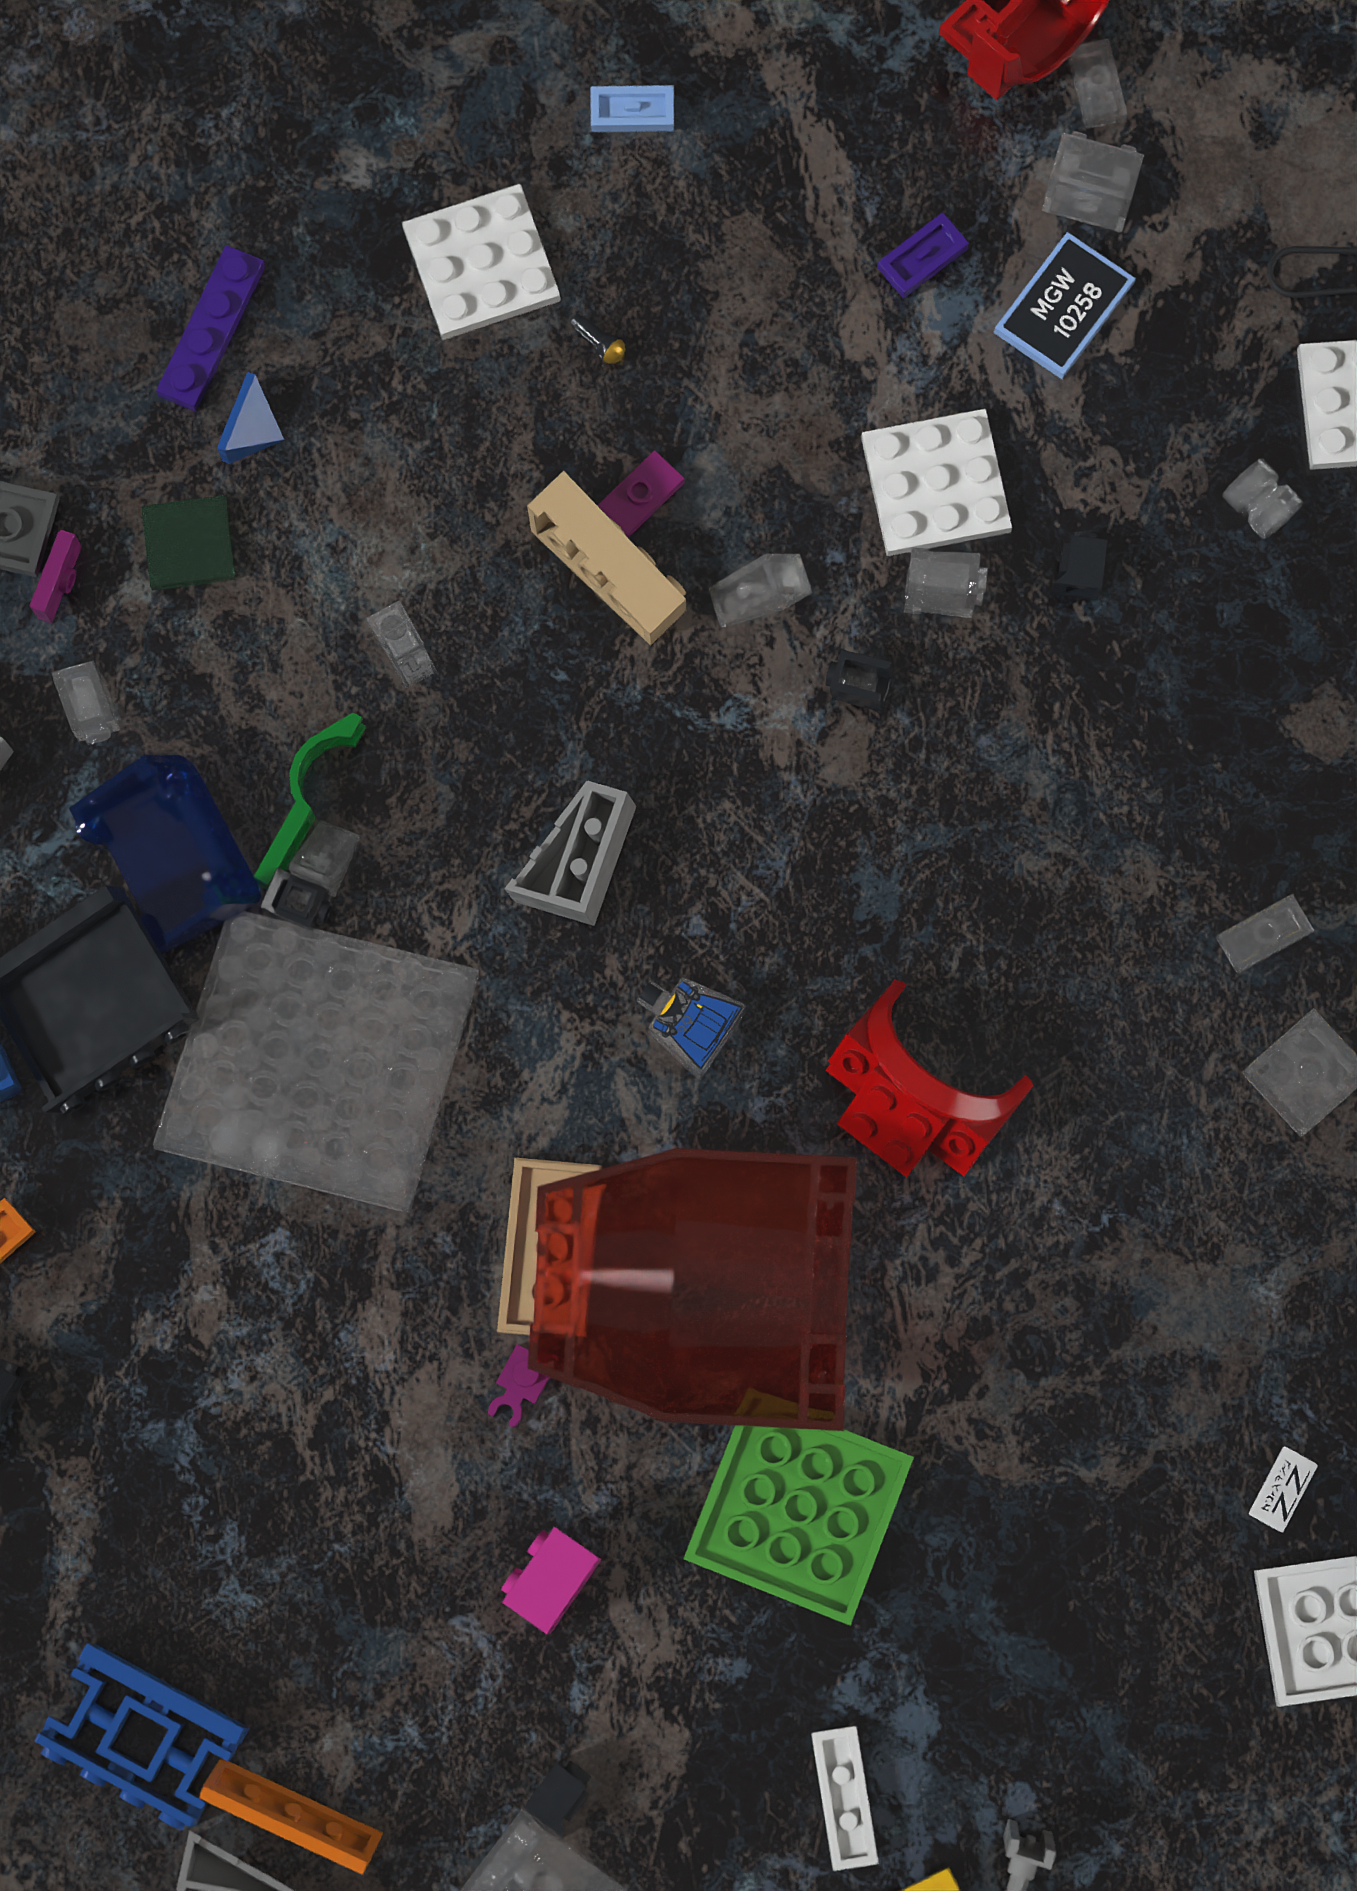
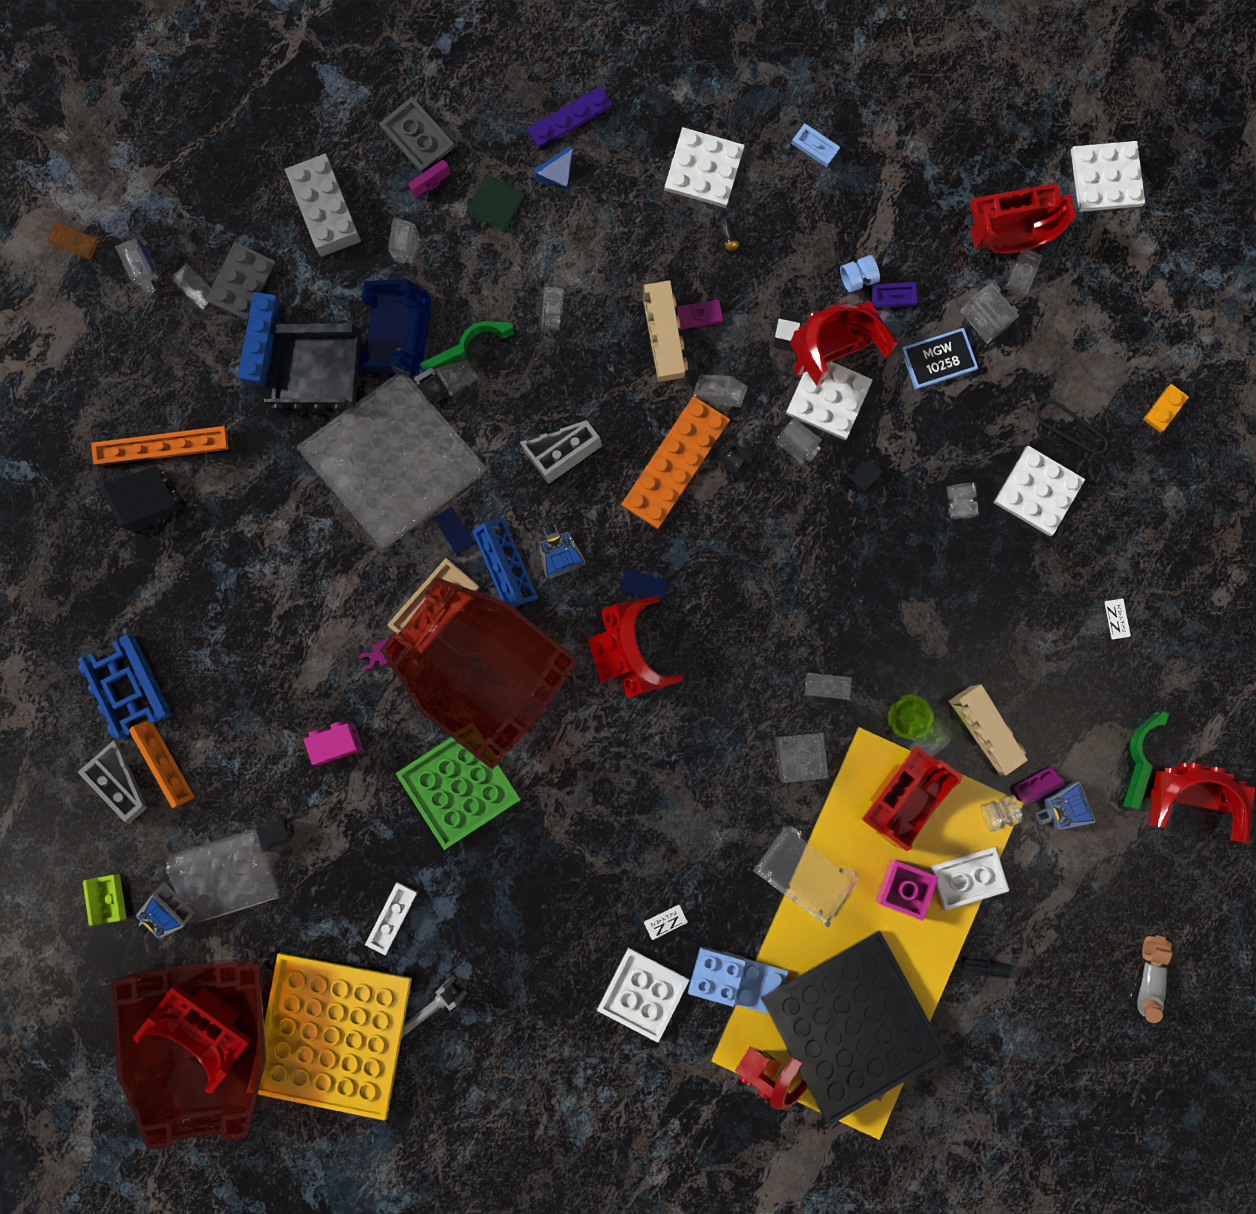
camera: 25 degrees right, 5 degrees up
(496, 1105) = (454, 530): none -> clear blue tile
(612, 1106) = (500, 564): none -> blue fence
(770, 752) = (675, 462): none -> orange plate
(795, 424) = (787, 324): none -> sticker
(843, 263) = (859, 273): none -> light blue wheel
(859, 980) = (643, 585): none -> clear blue tile
(875, 388) = (830, 337): none -> red piece

